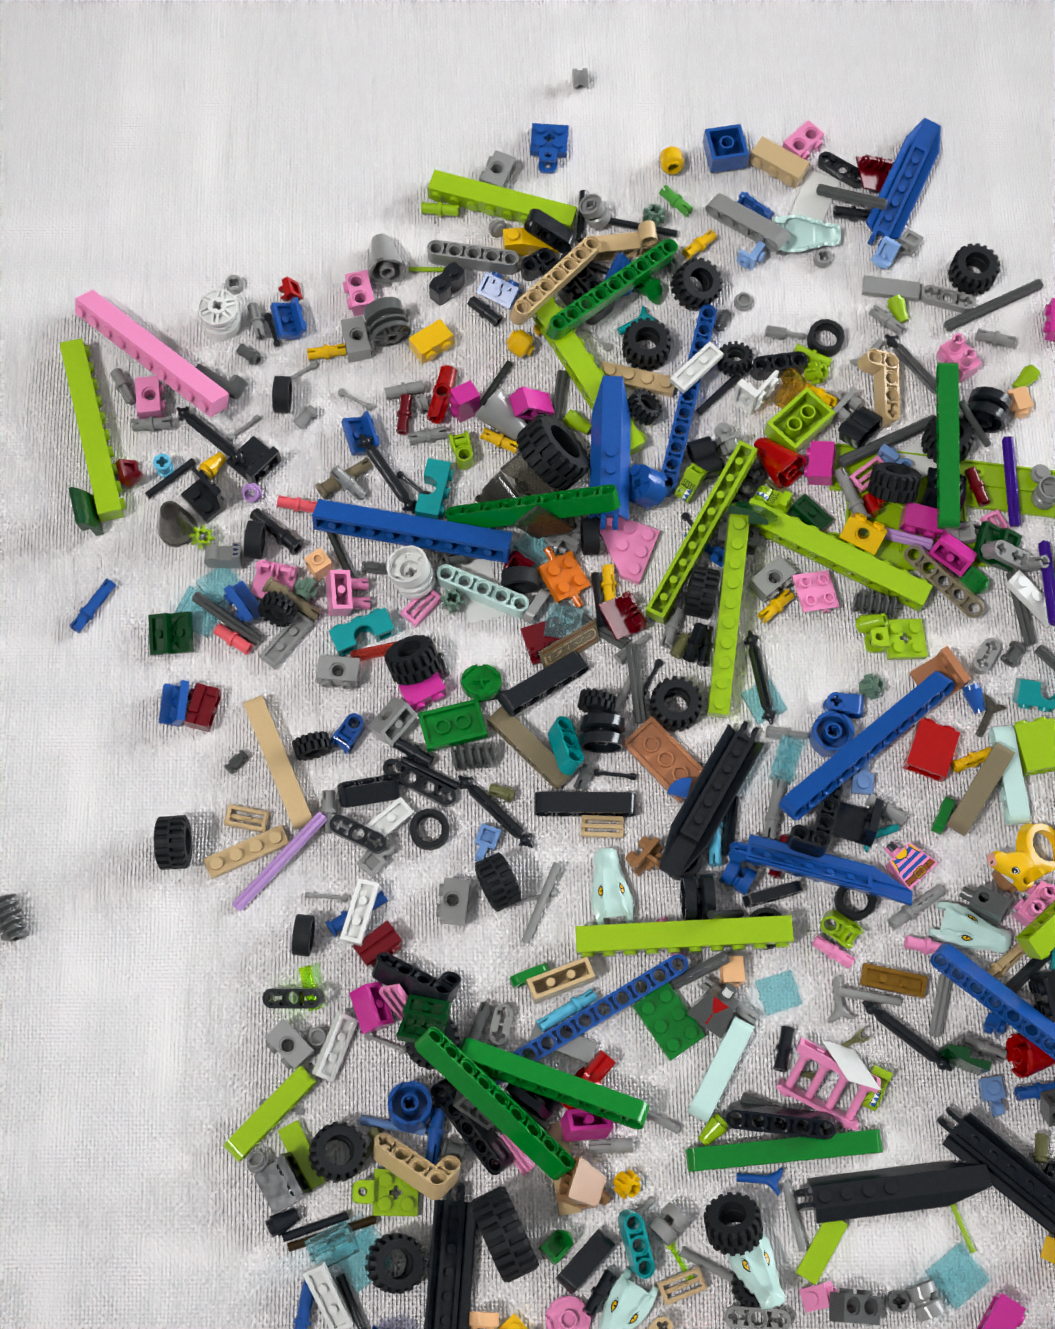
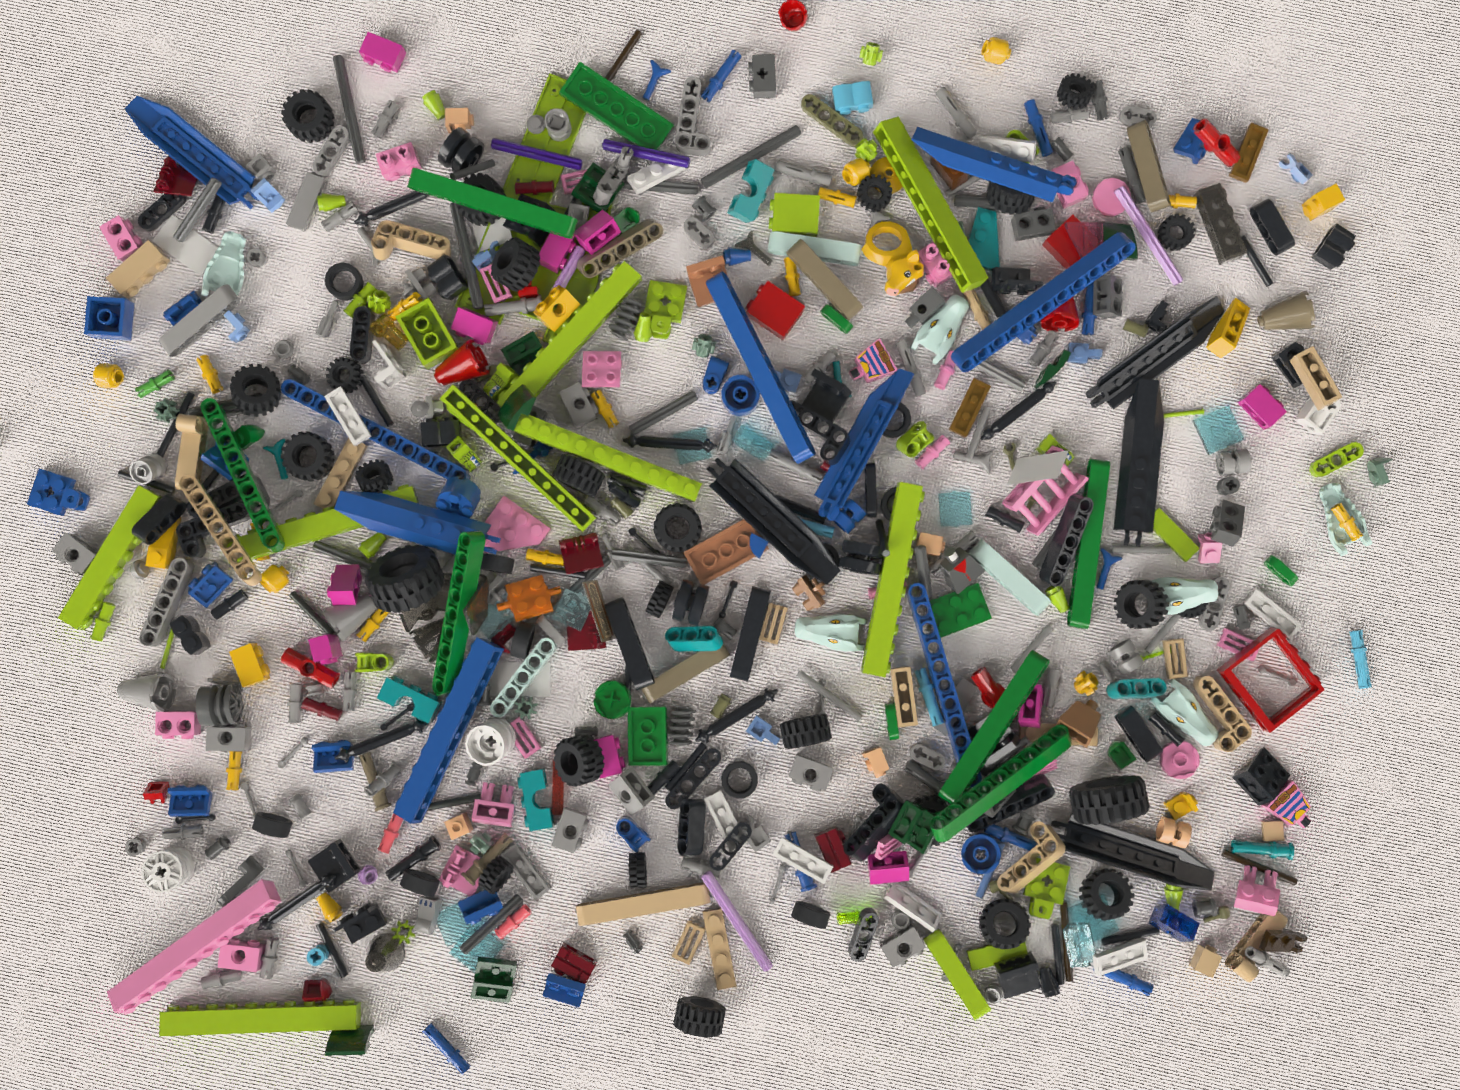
camera: 70 degrees left, 15 degrees up
(482, 969) = (876, 761): none -> light nougat brick
(789, 664) = (663, 412): none -> dark grey axle

